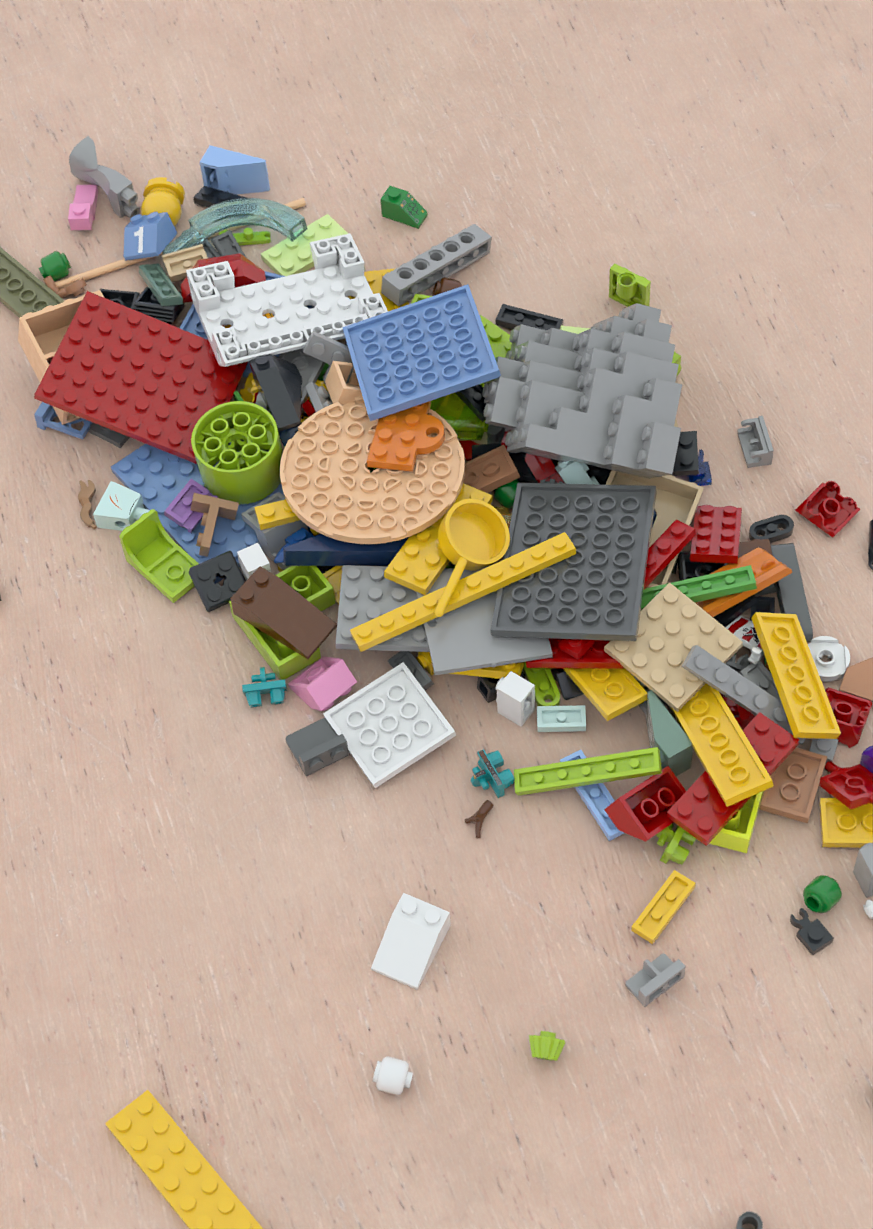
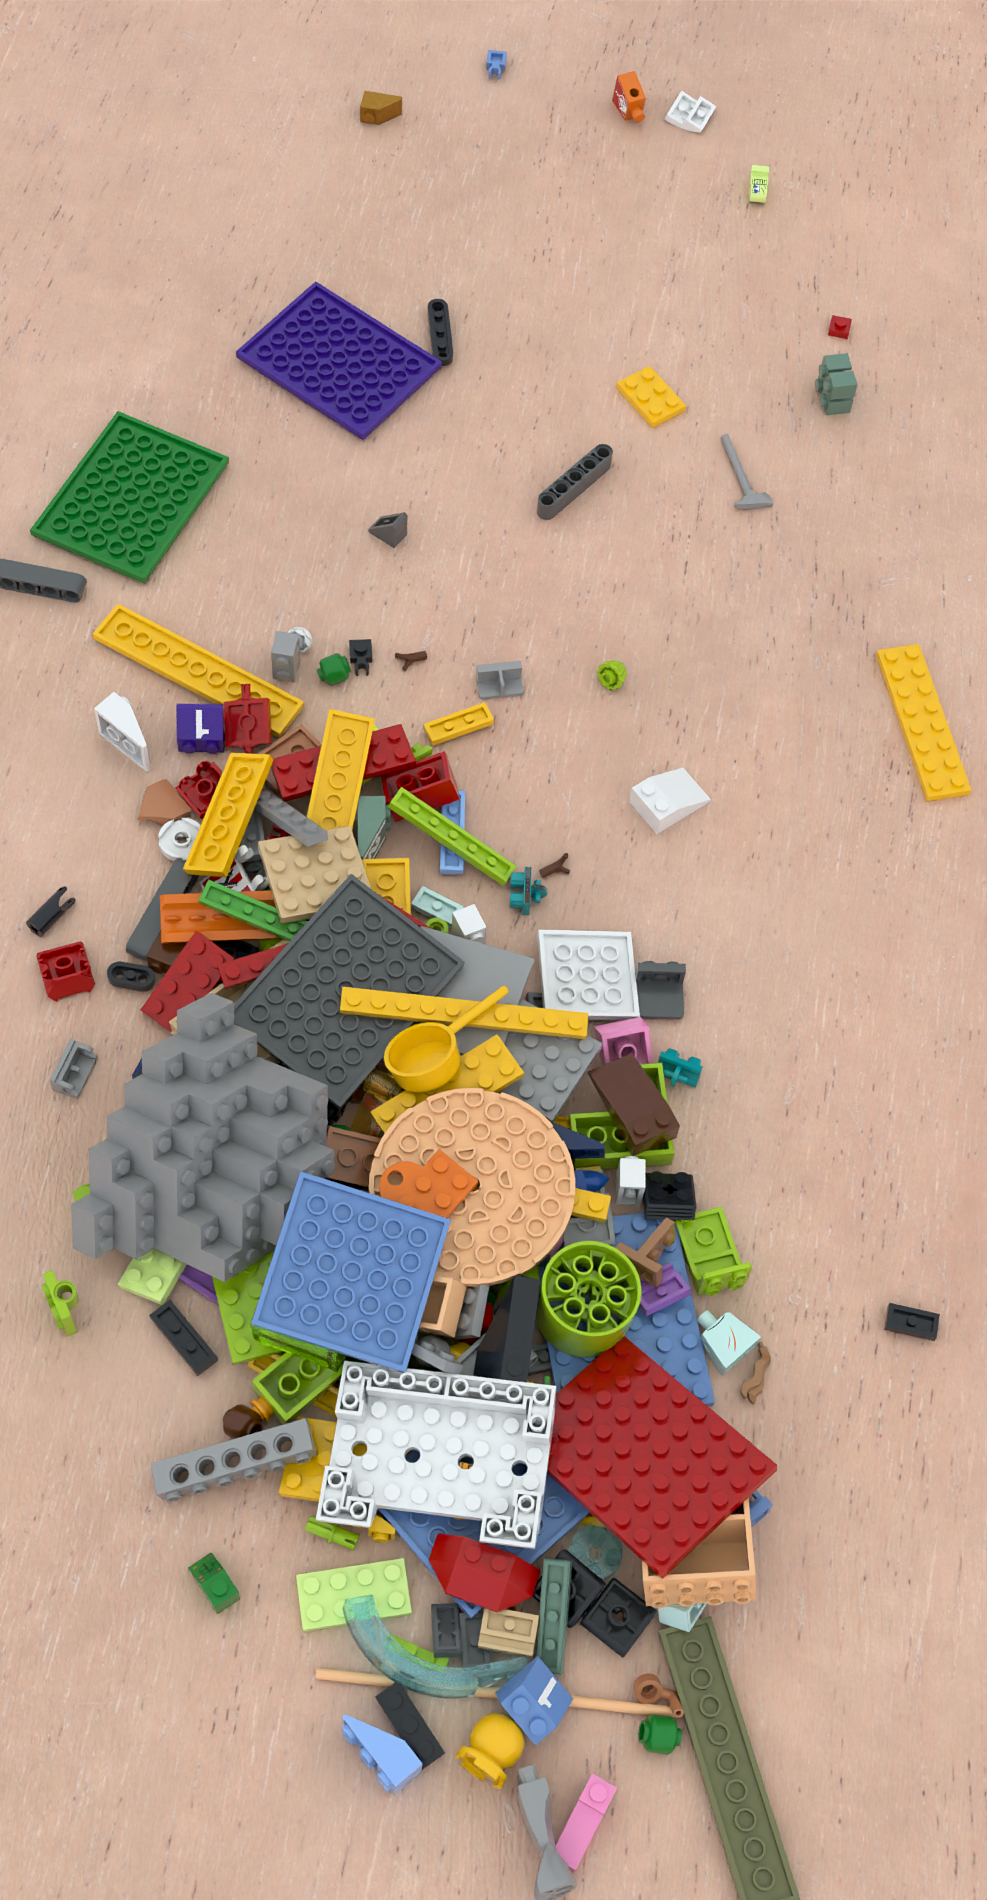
camera: 160 degrees left, 5 degrees up
(392, 1075) = (738, 711): white head -> none
(761, 955) = (412, 657): none -> reddish brown bar

